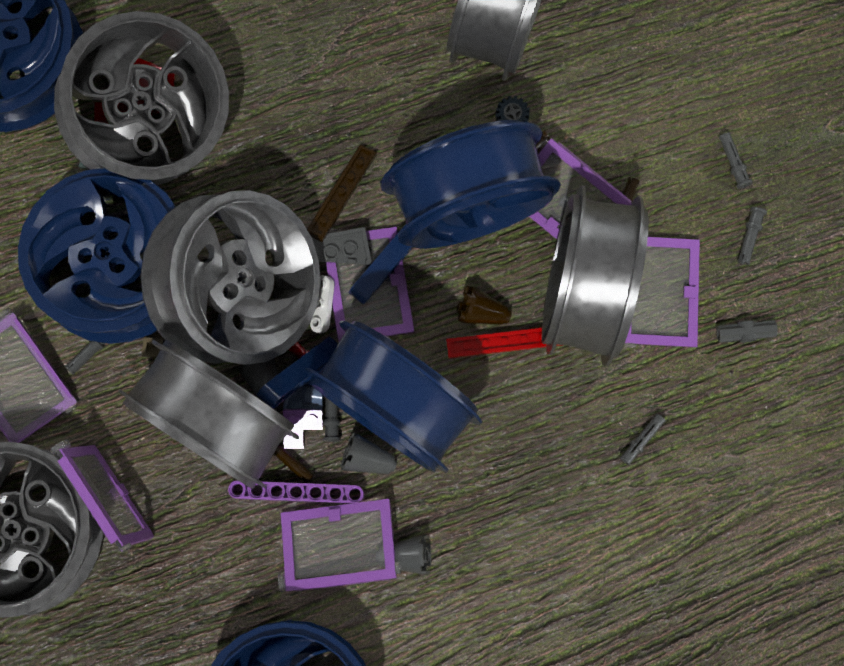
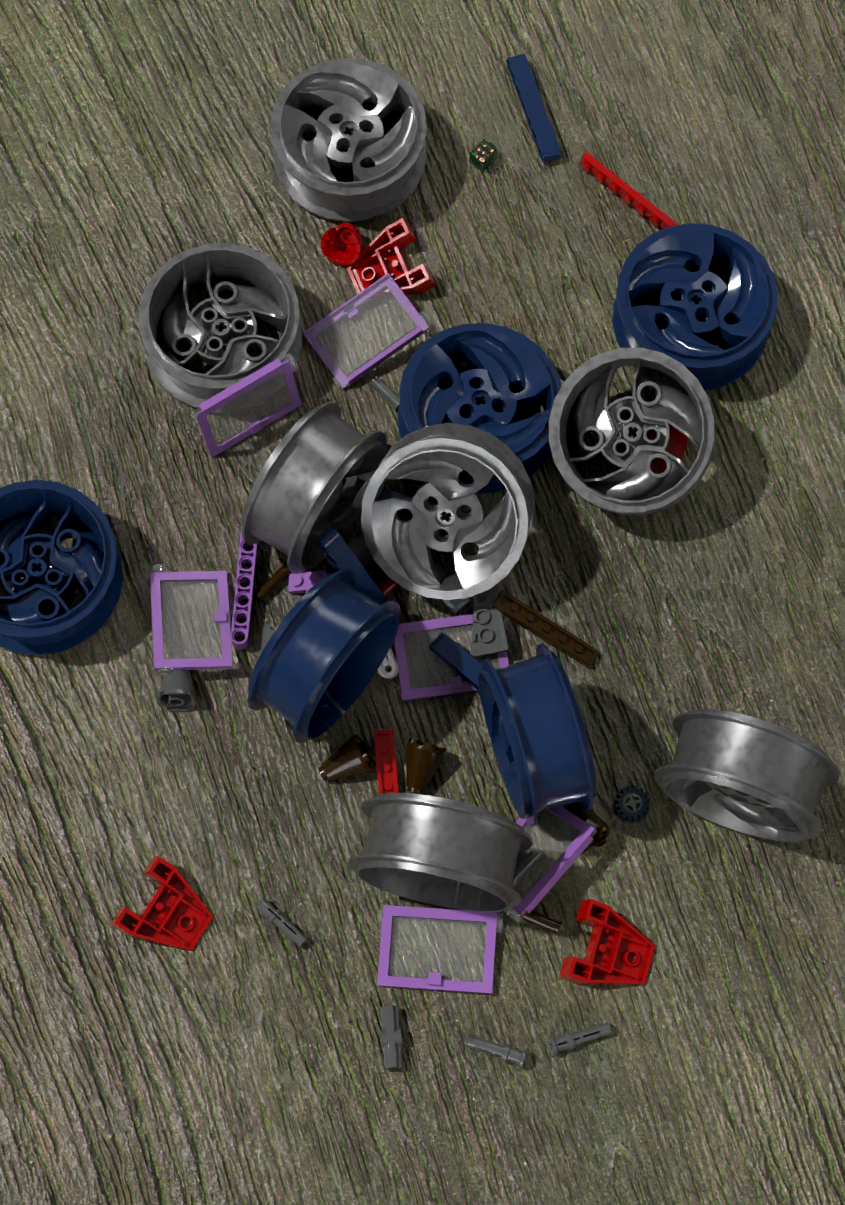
camera: 90 degrees right, 10 degrees down
(322, 315) = (431, 610): white plate -> none
(481, 381) = (347, 760): none -> dark brown cone
(640, 548) = (172, 913): none -> red wedge
(654, 130) = (614, 951): none -> red wedge

